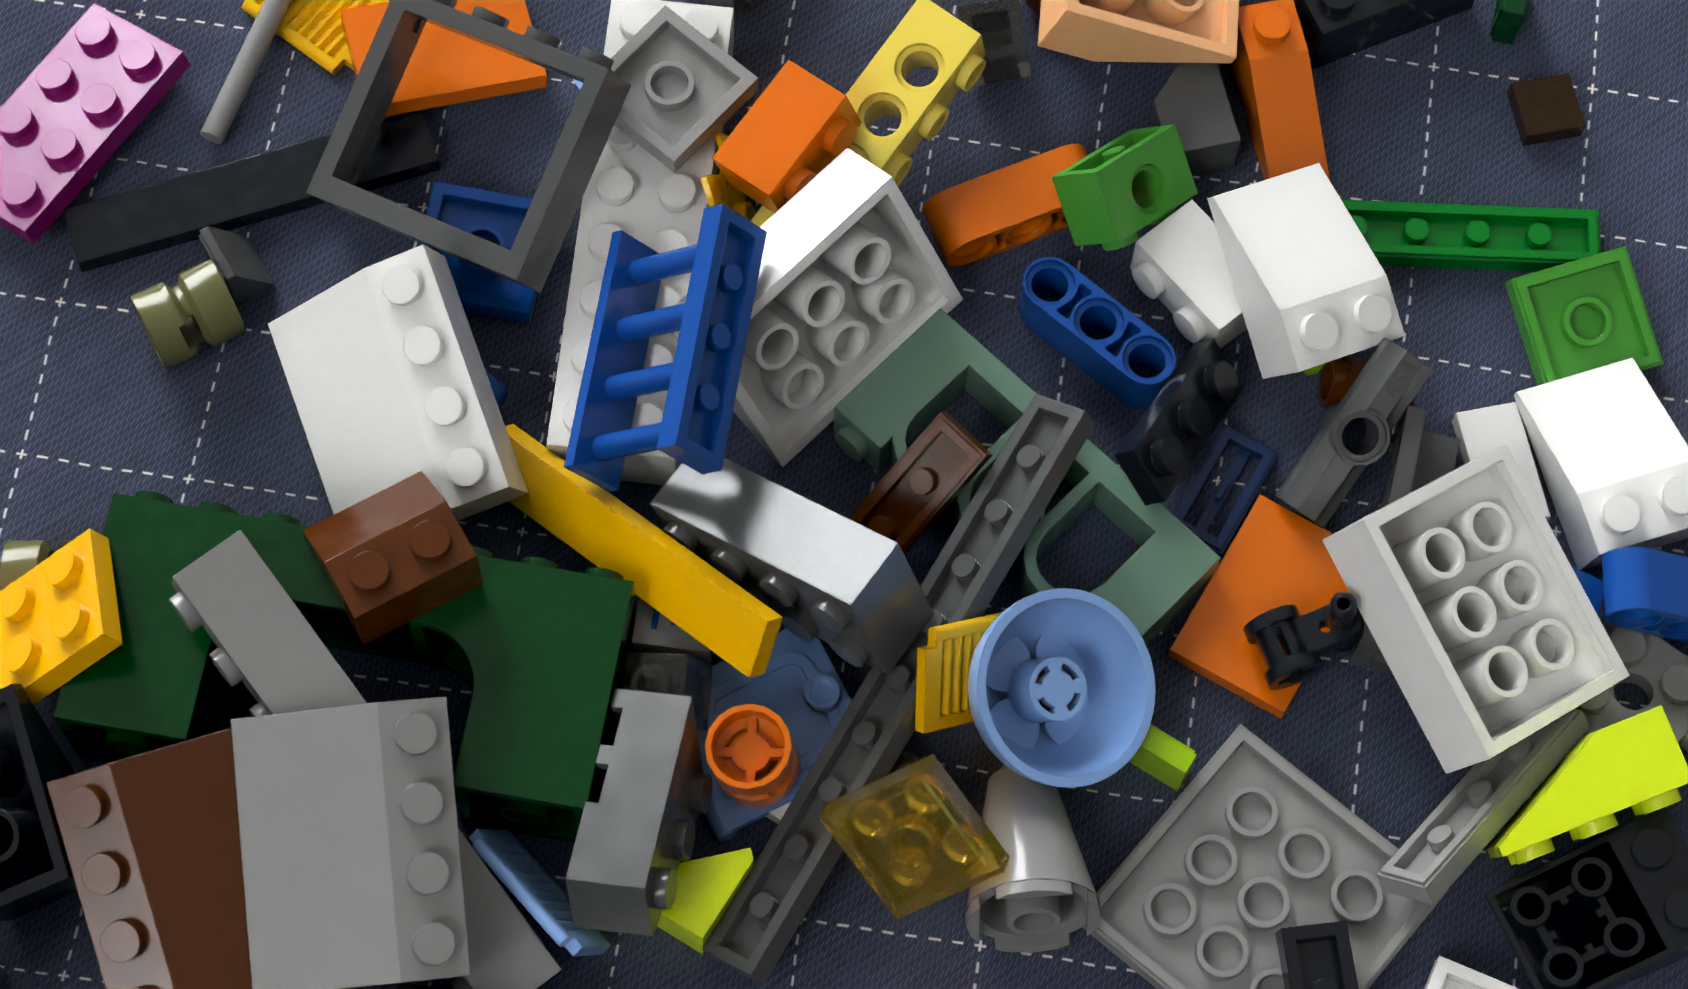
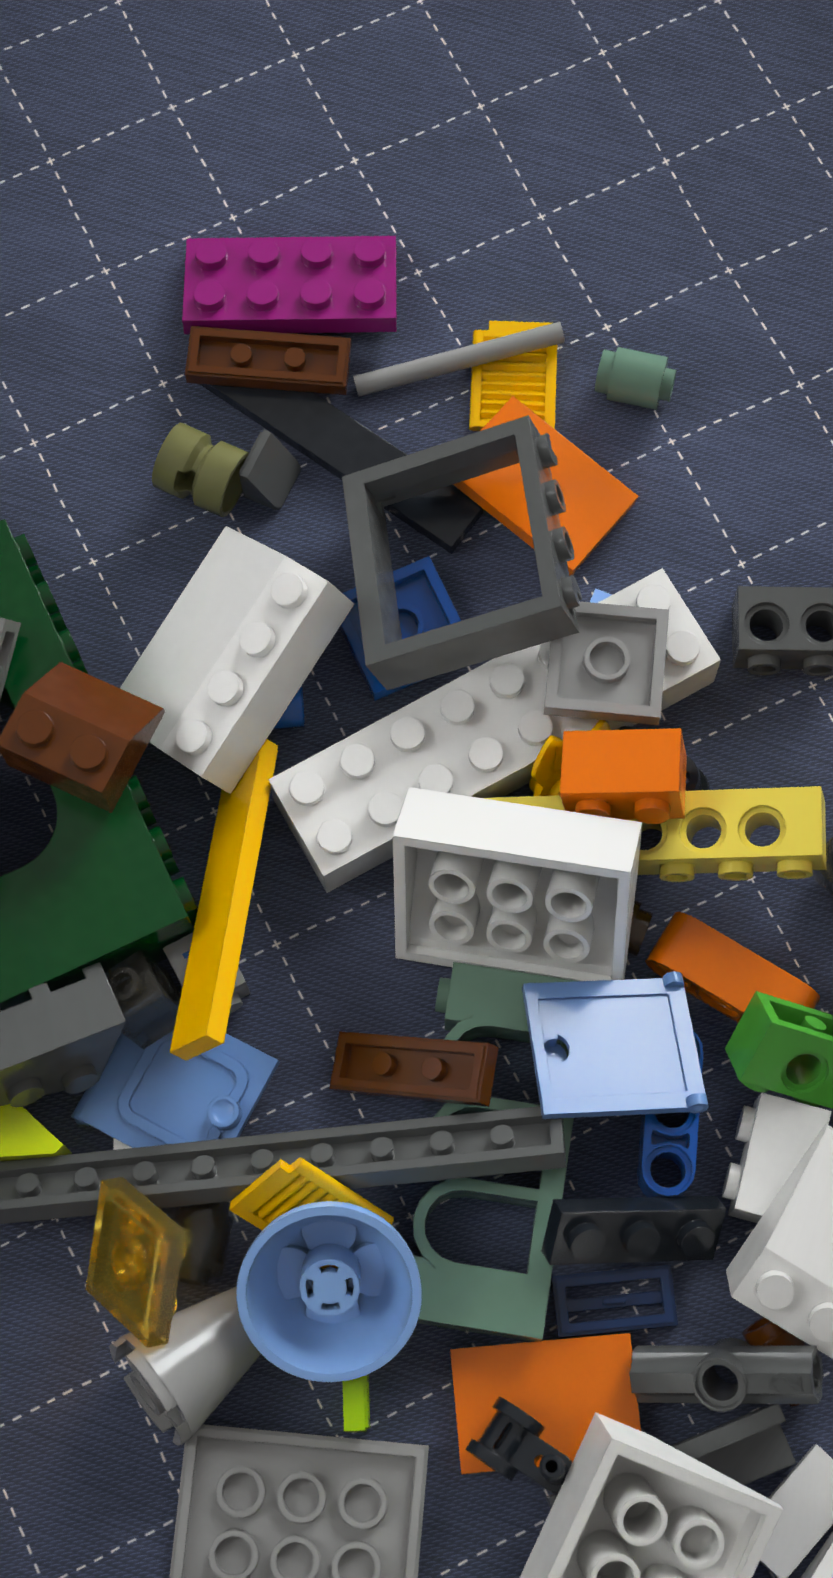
camera: 60 degrees right, 5 degrees up
(126, 188) = (268, 360): none -> reddish brown tile
(706, 359) = (390, 835): blue fence -> none
(752, 755) = (129, 1096): orange wheel -> none
(799, 560) = (289, 1018): dark grey brick -> none
(1020, 313) = (624, 1043): none -> container

